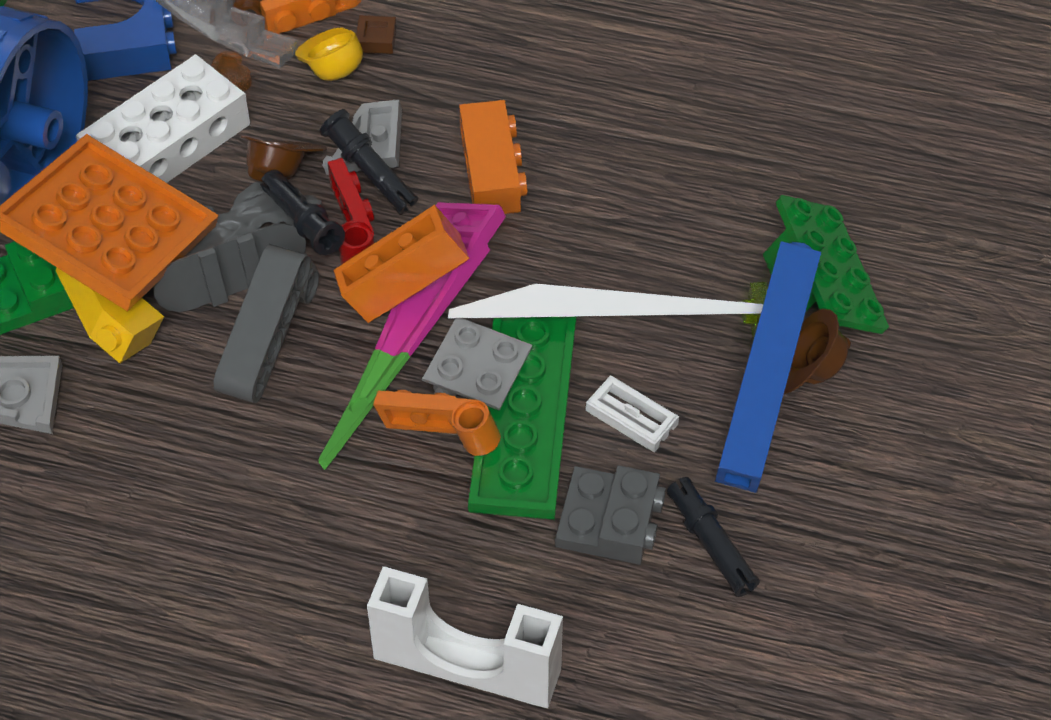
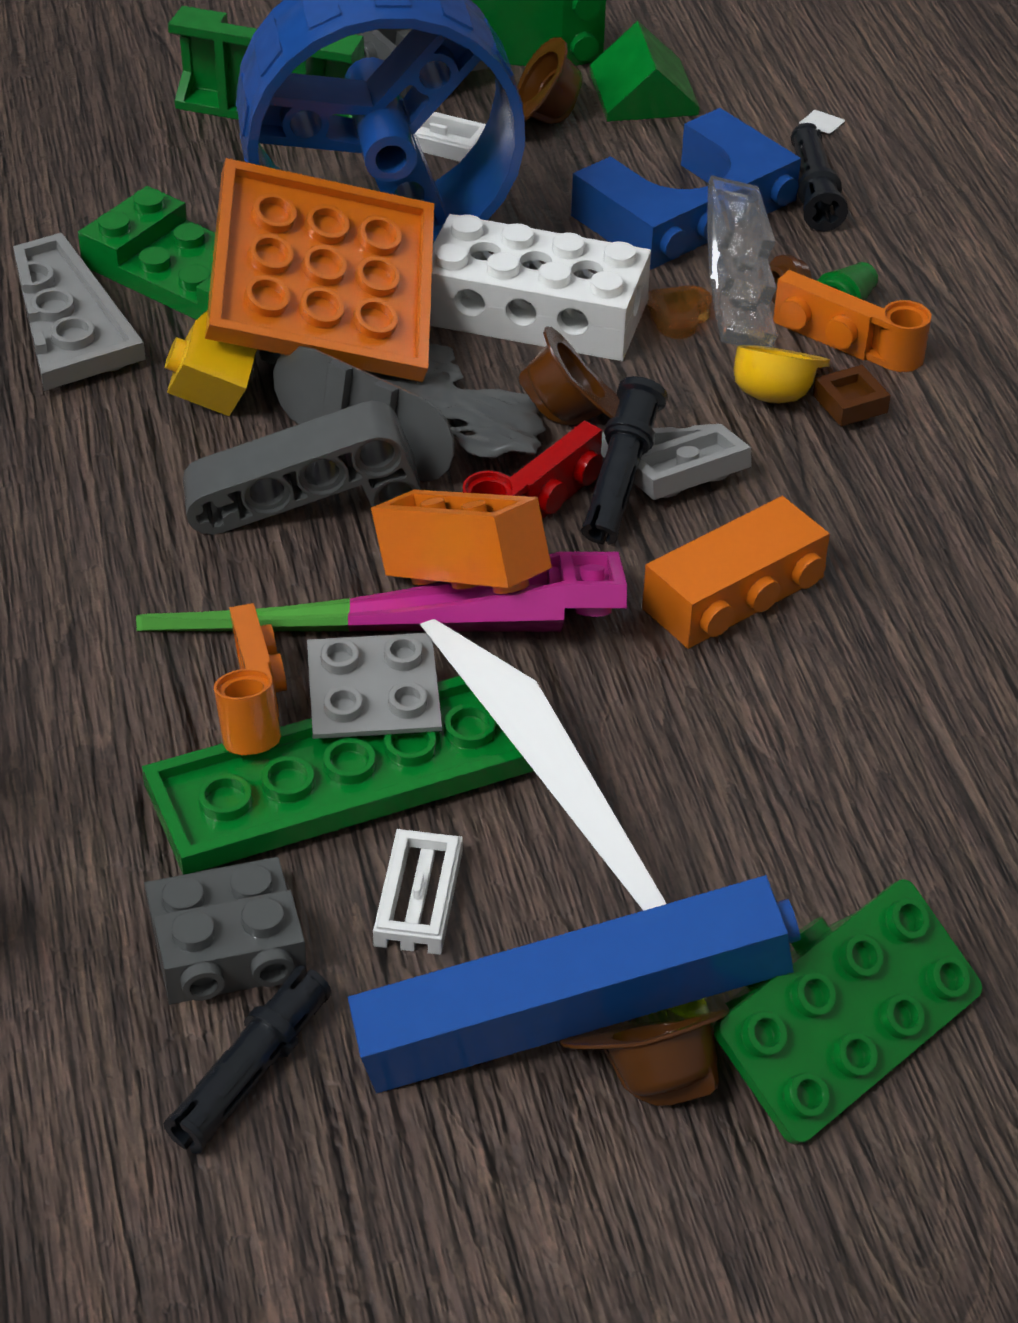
camera: 60 degrees right, 10 degrees down
(308, 218) = (476, 435): black pin -> none

